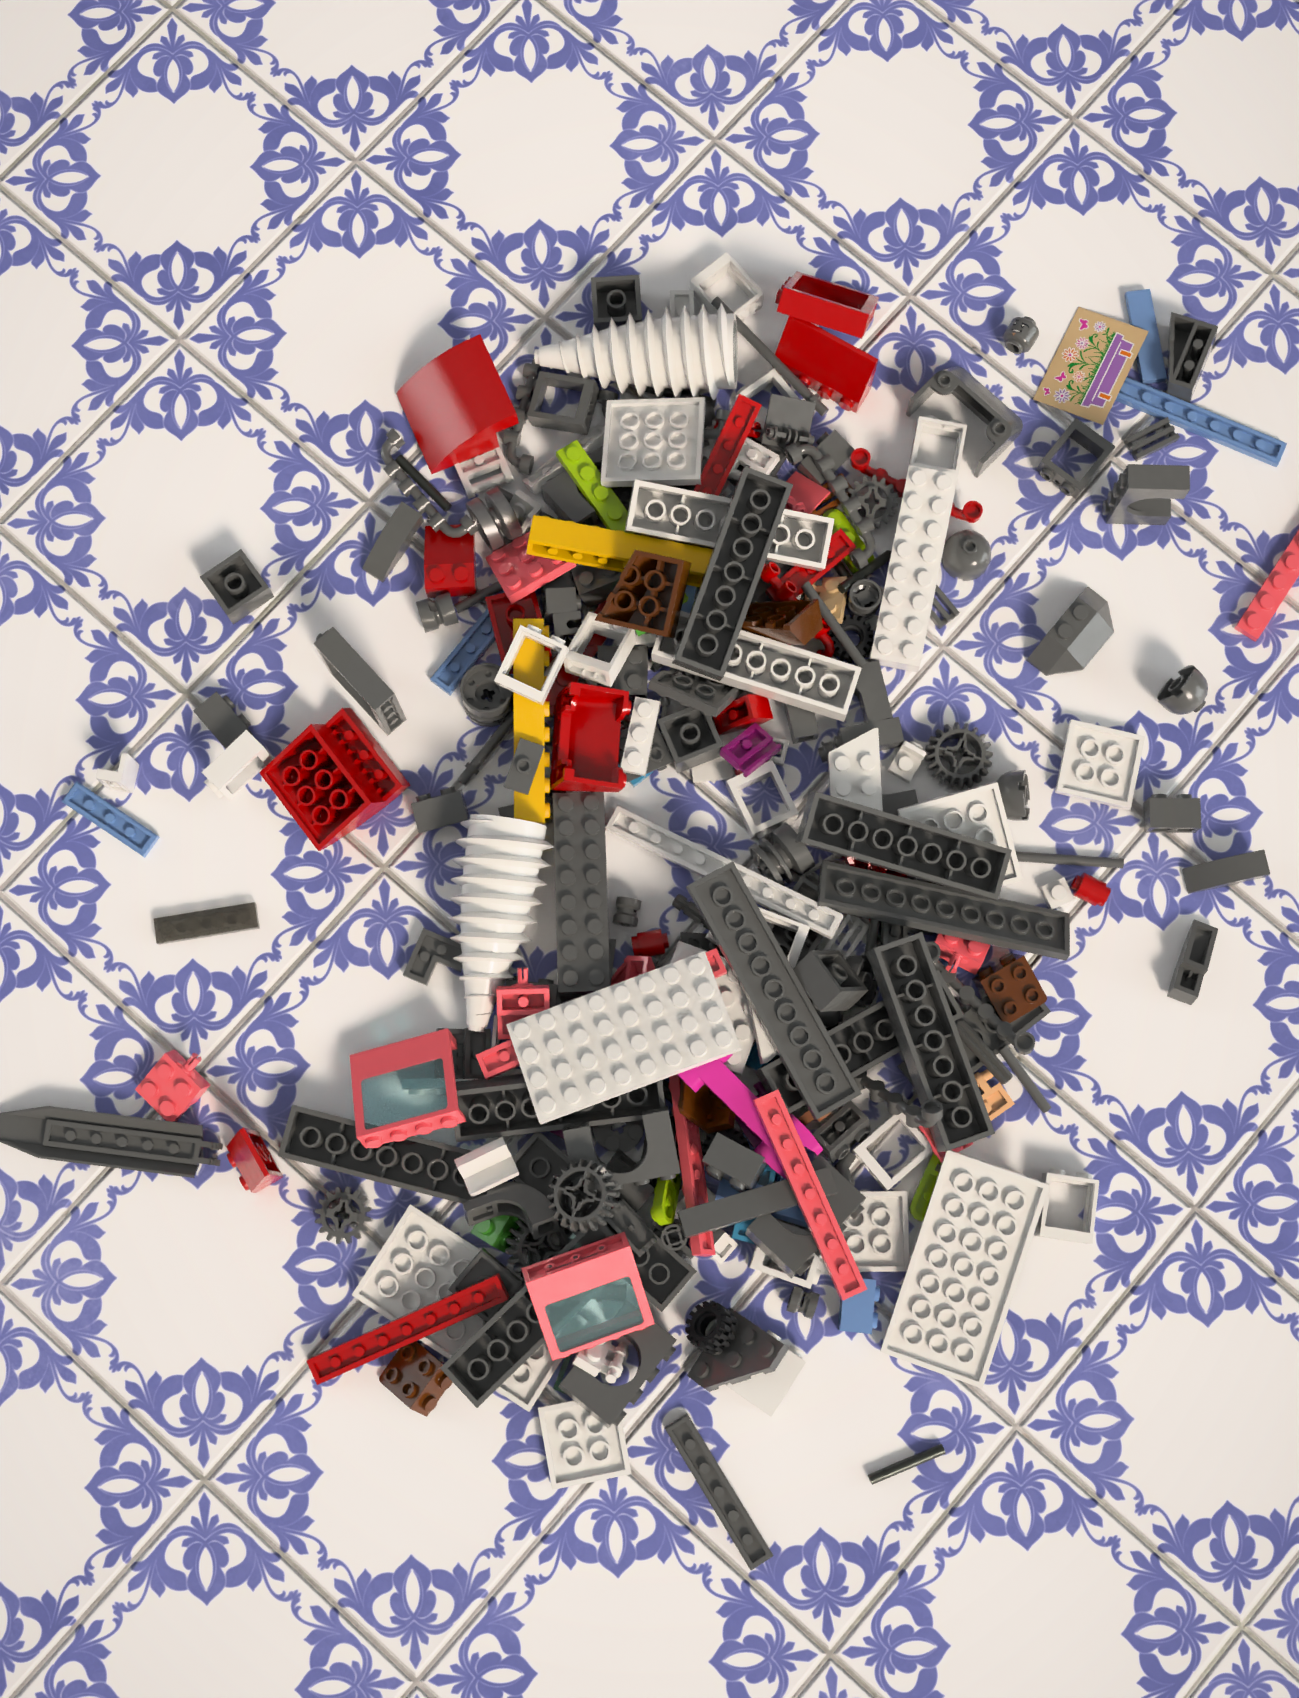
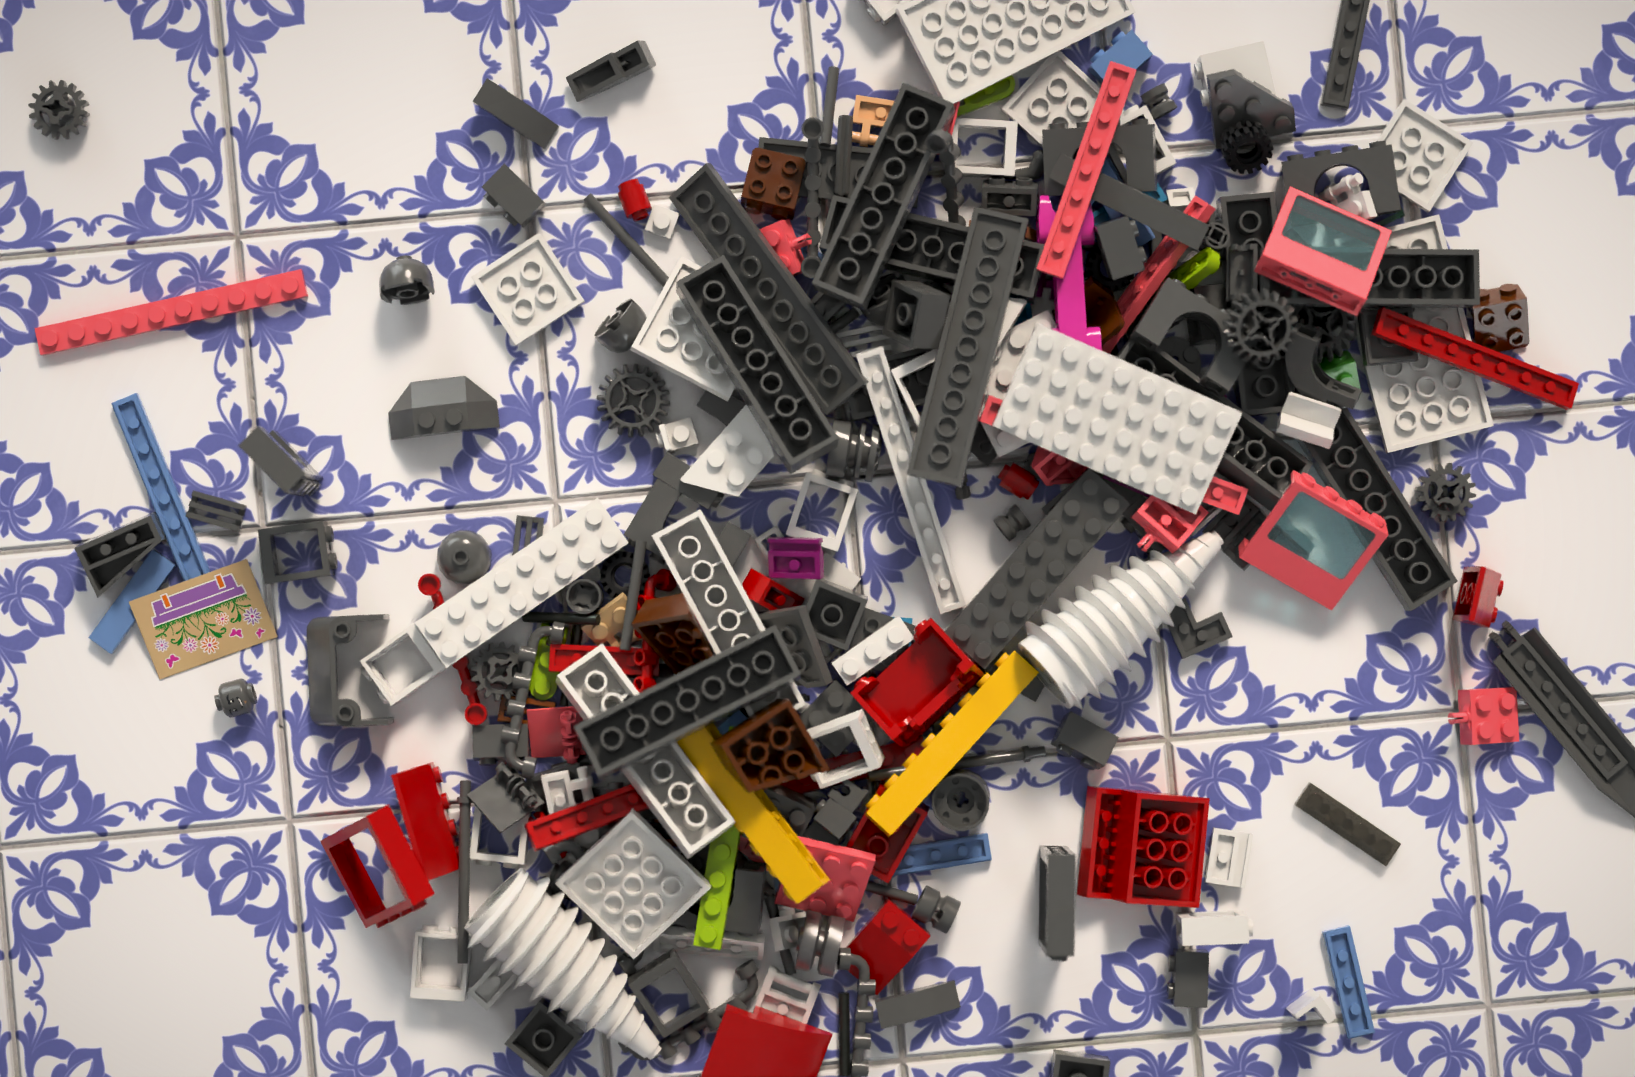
camera: 135 degrees left, 10 degrees up
(268, 825) = (1228, 857): none -> white plate
(524, 766) = (991, 707): dark grey plate -> none
(532, 633) = (939, 773): white window -> none
(824, 750) = (732, 503): dark grey plate -> none

